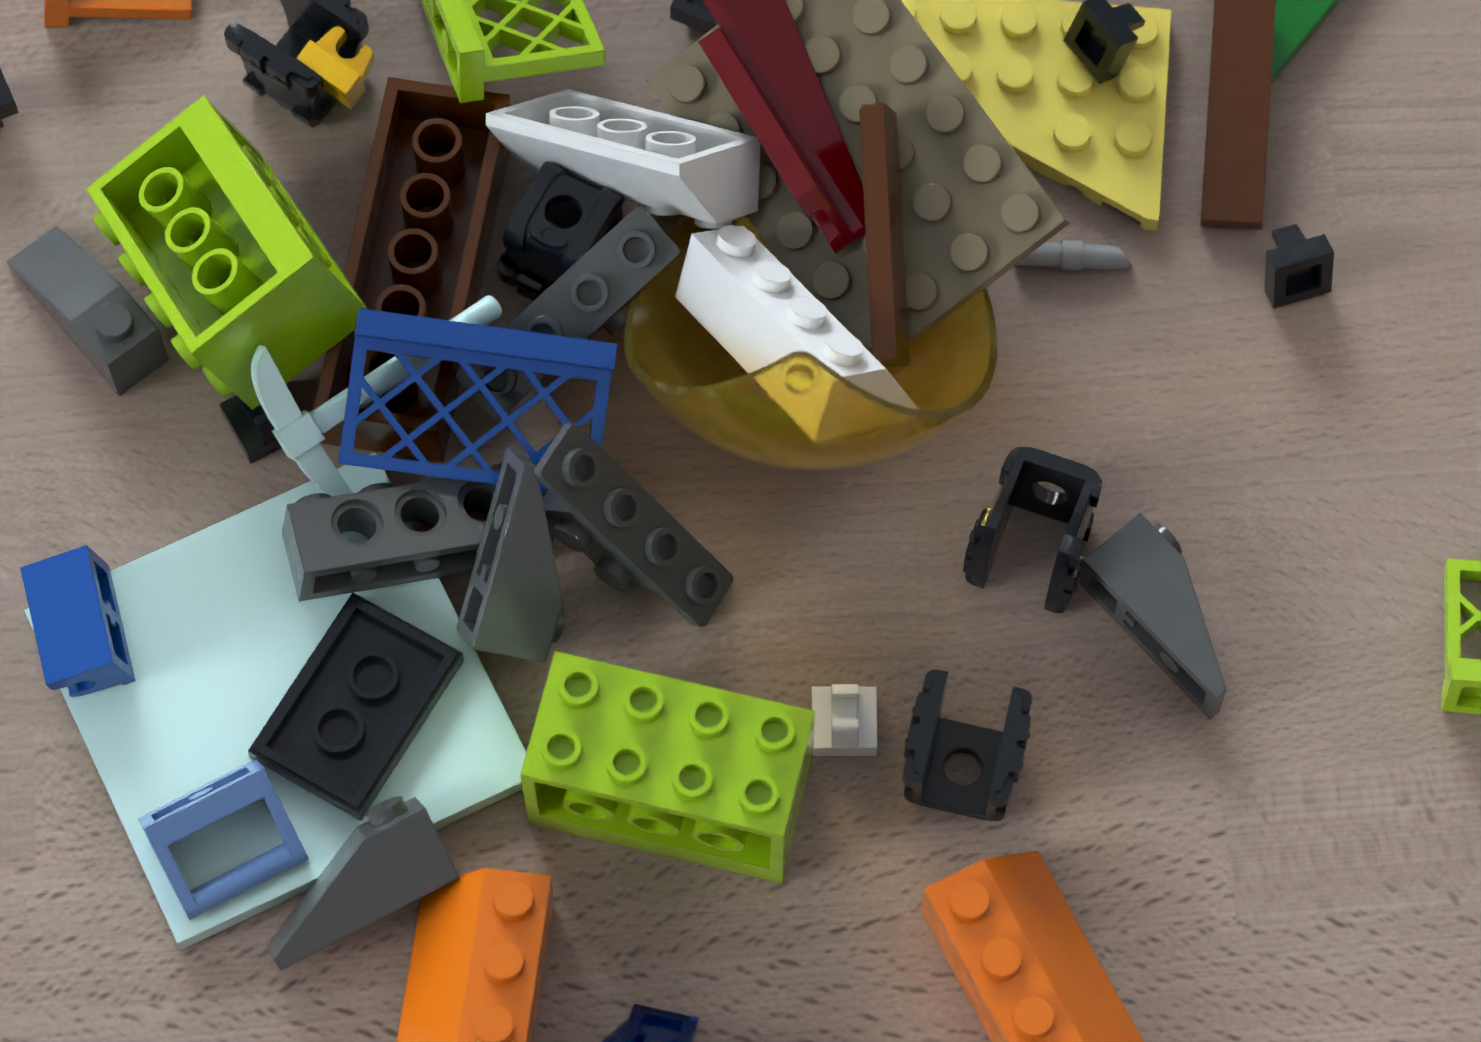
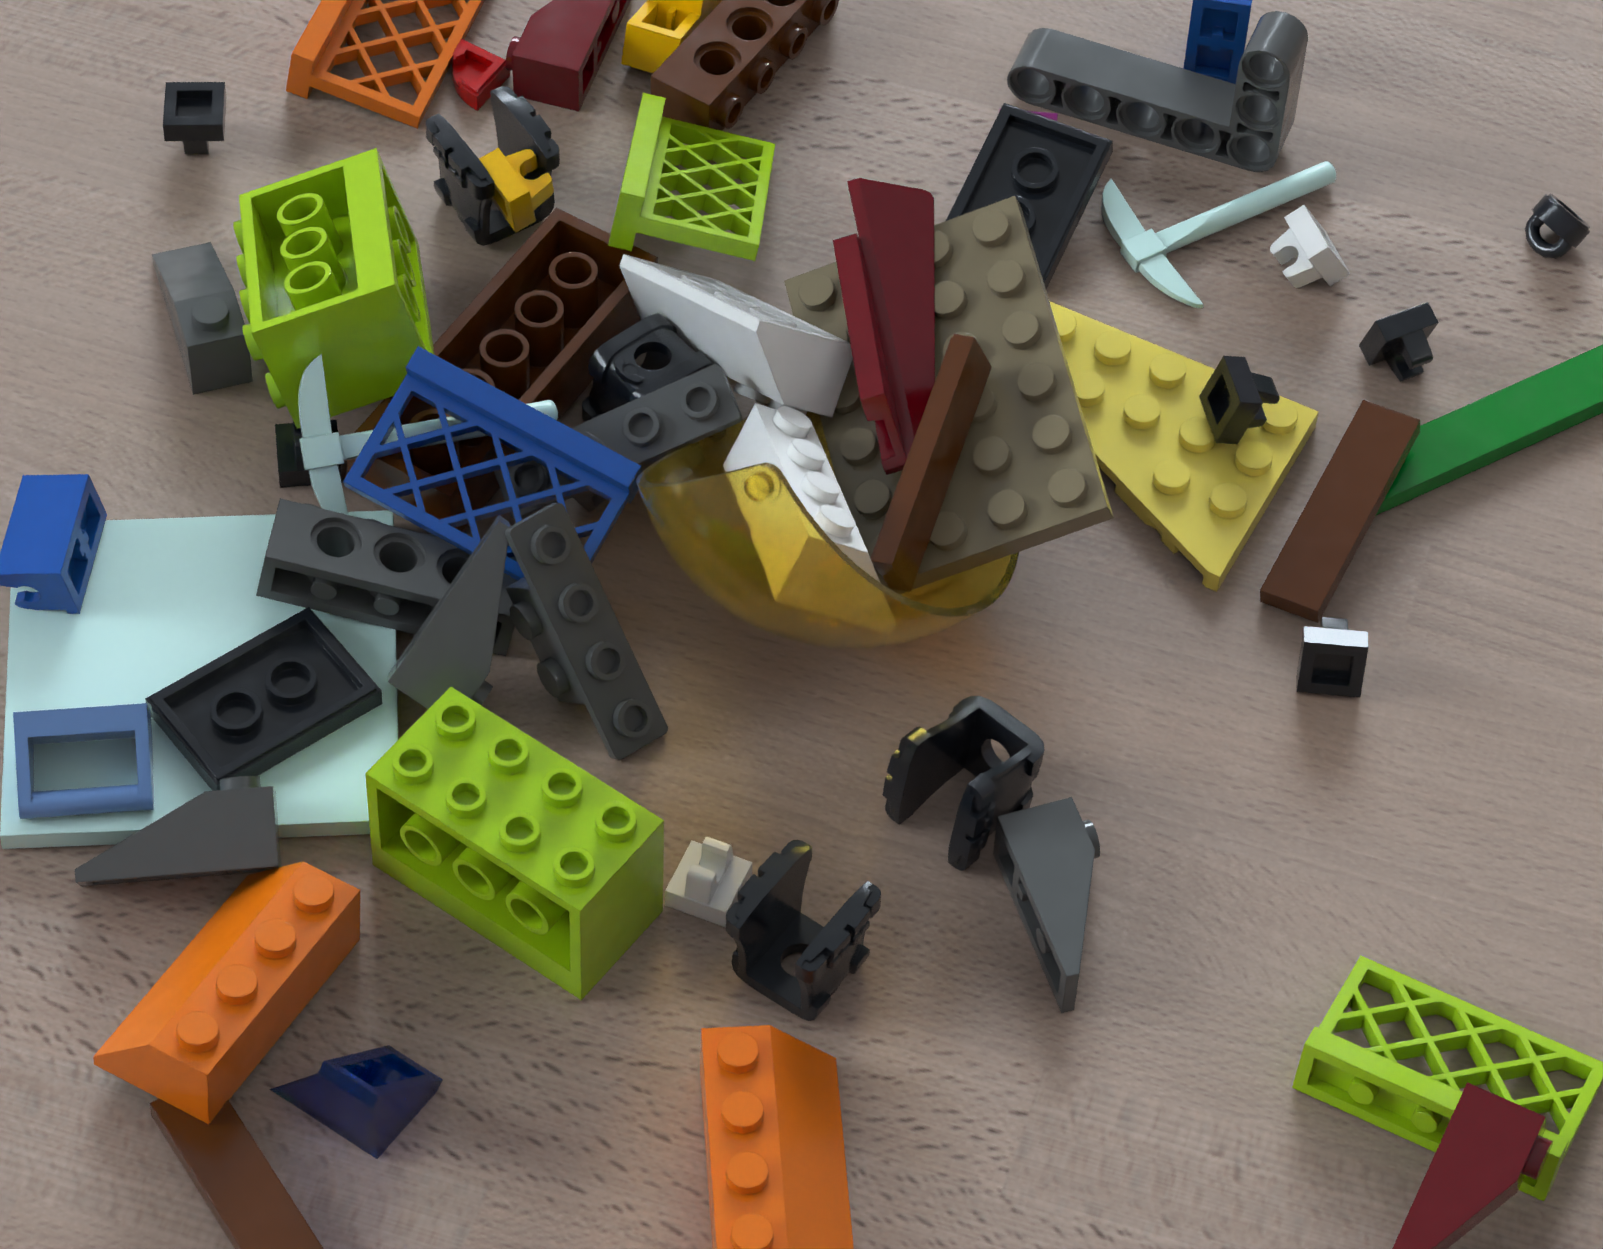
camera: 20 degrees right, 15 degrees down
(1076, 255) = (1120, 579): light grey piece -> none

